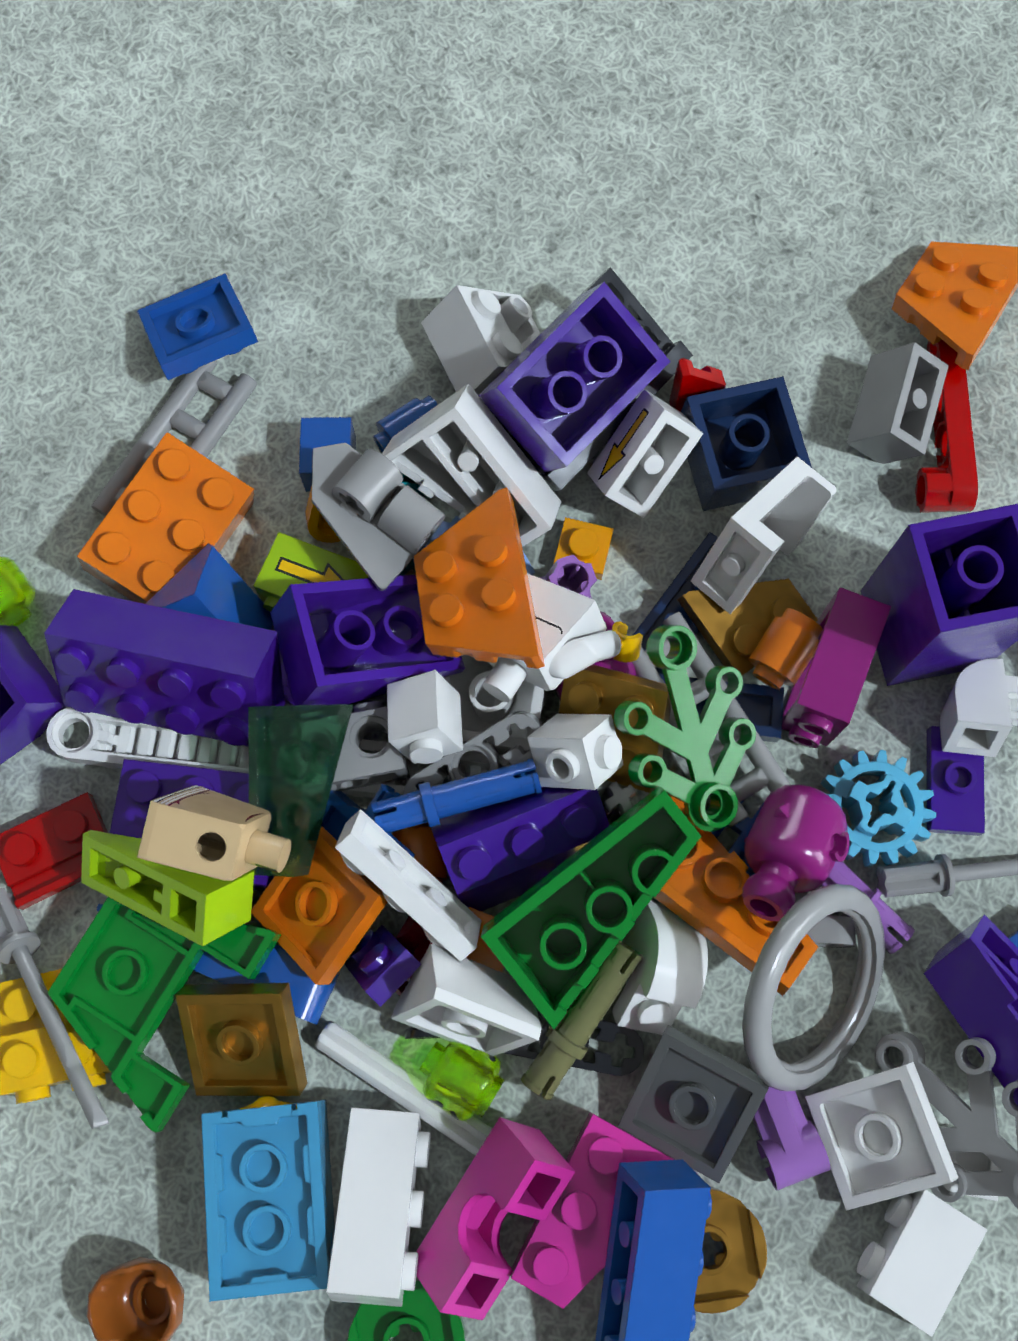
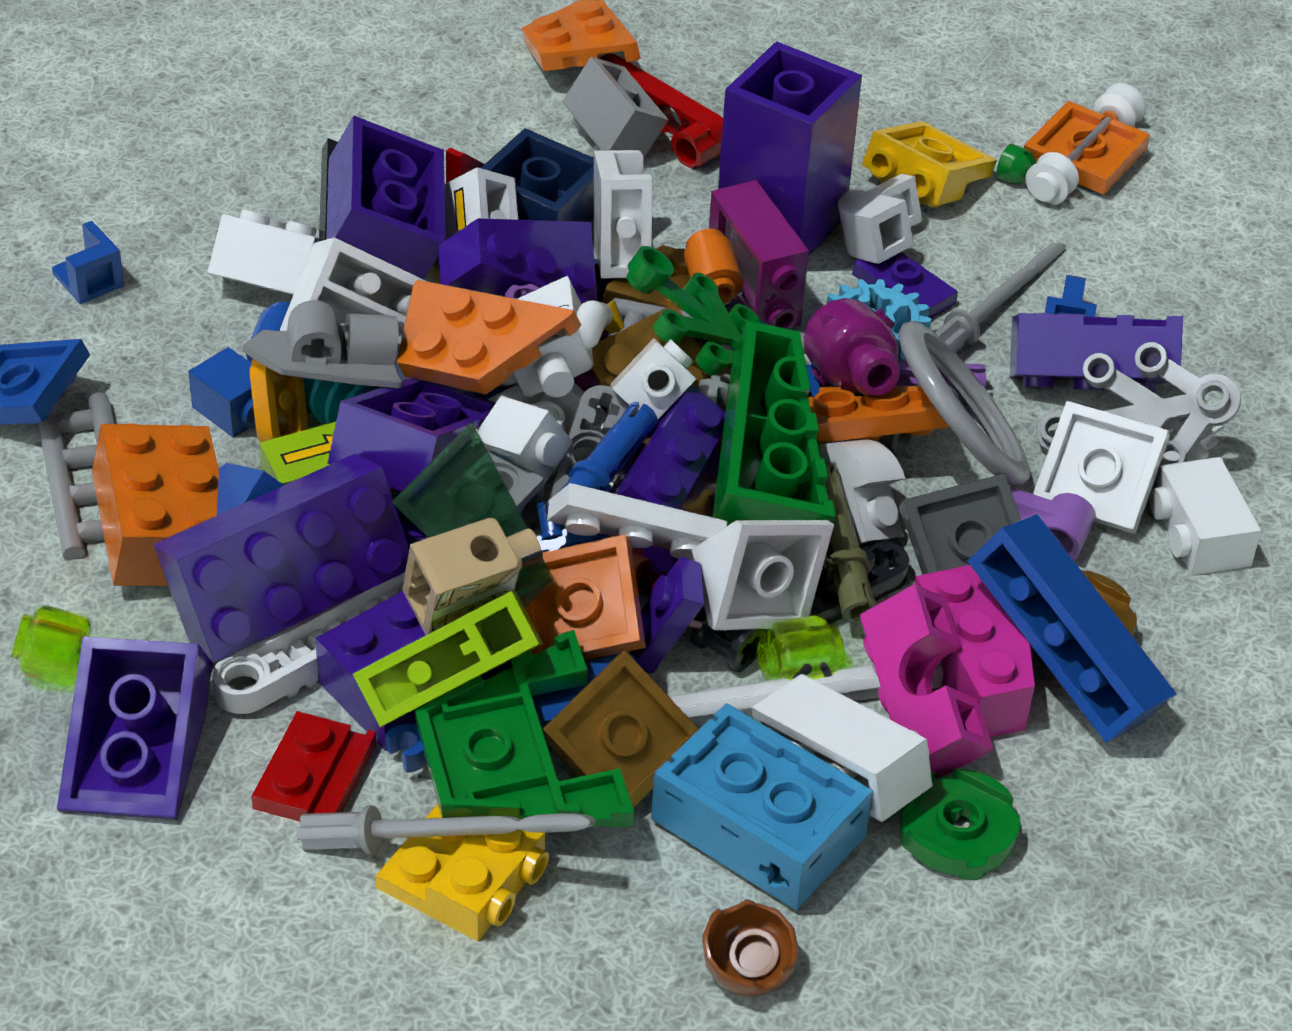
camera: 50 degrees left, 30 degrees down
(358, 245) = (93, 270): none -> blue panel
(624, 532) = (509, 252): none -> dark purple wedge

